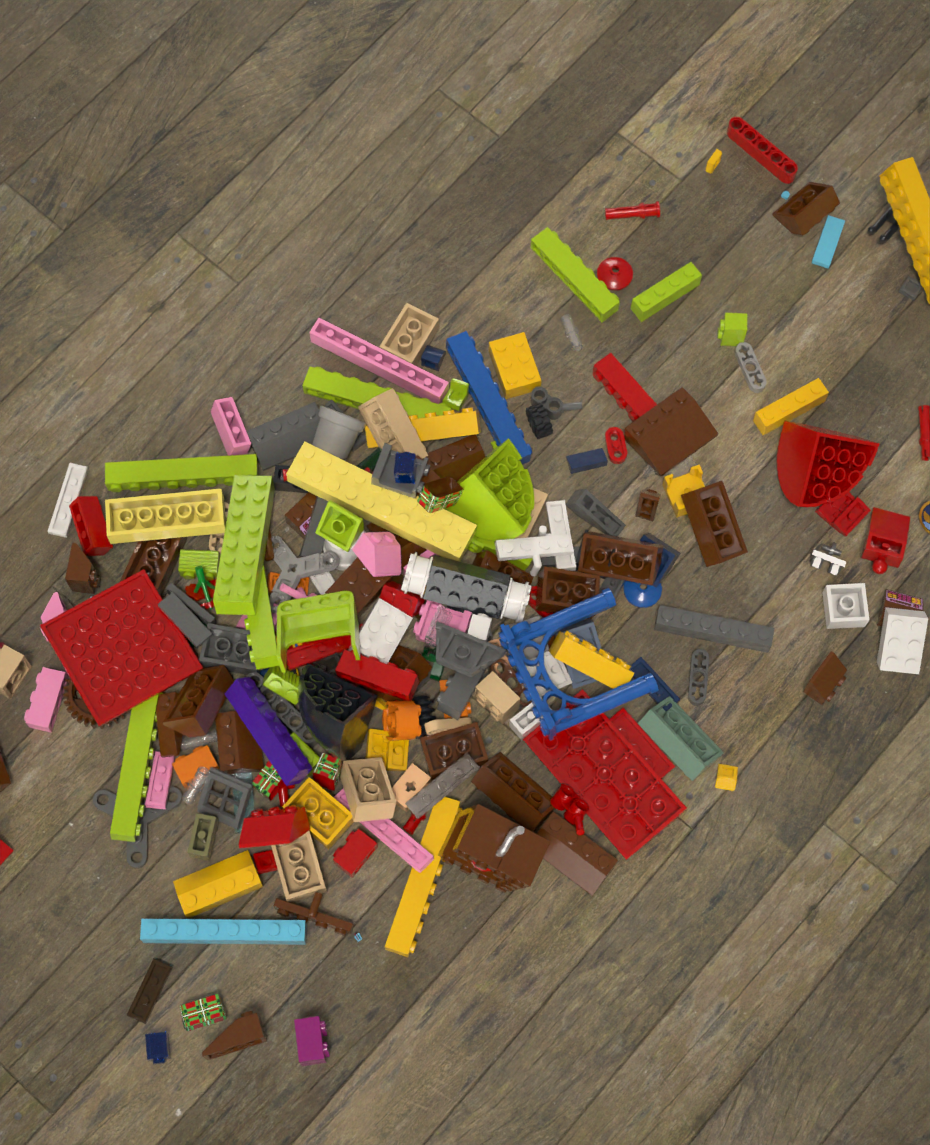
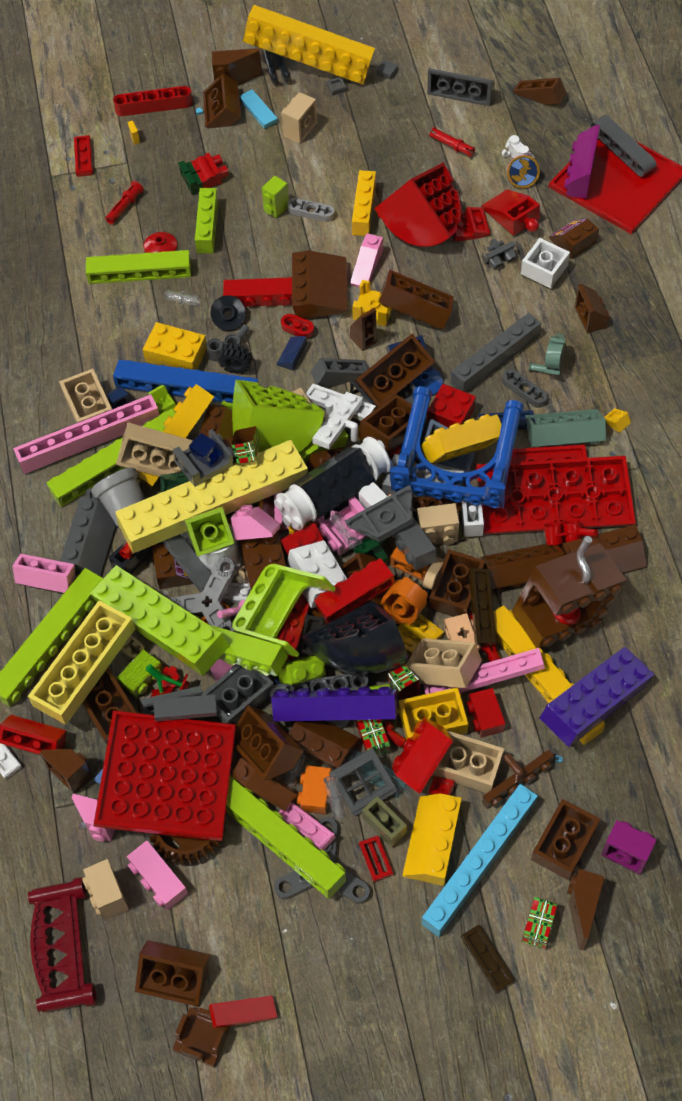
camera: 50 degrees left, 10 degrees down
(157, 1047) = (545, 982): clear blue brick -> none
(181, 853) = (381, 875): none -> red tile
(284, 987) = (565, 839): none -> reddish brown brick
(424, 931) = (596, 696): none -> dark purple brick
(575, 377) = (225, 304): none -> black dish
(625, 631) = (451, 406): none -> red brick
(658, 140) = (83, 156): none -> red tile
(716, 250) = (203, 172): none -> red hips
(729, 454) = (367, 259): none -> slope
(746, 679) = (554, 356): none -> sand green piece
(839, 284) = (299, 117): none -> tan brick
(853, 188) = (237, 64): none -> reddish brown slope
(902, 640) = (601, 243): white brick -> none

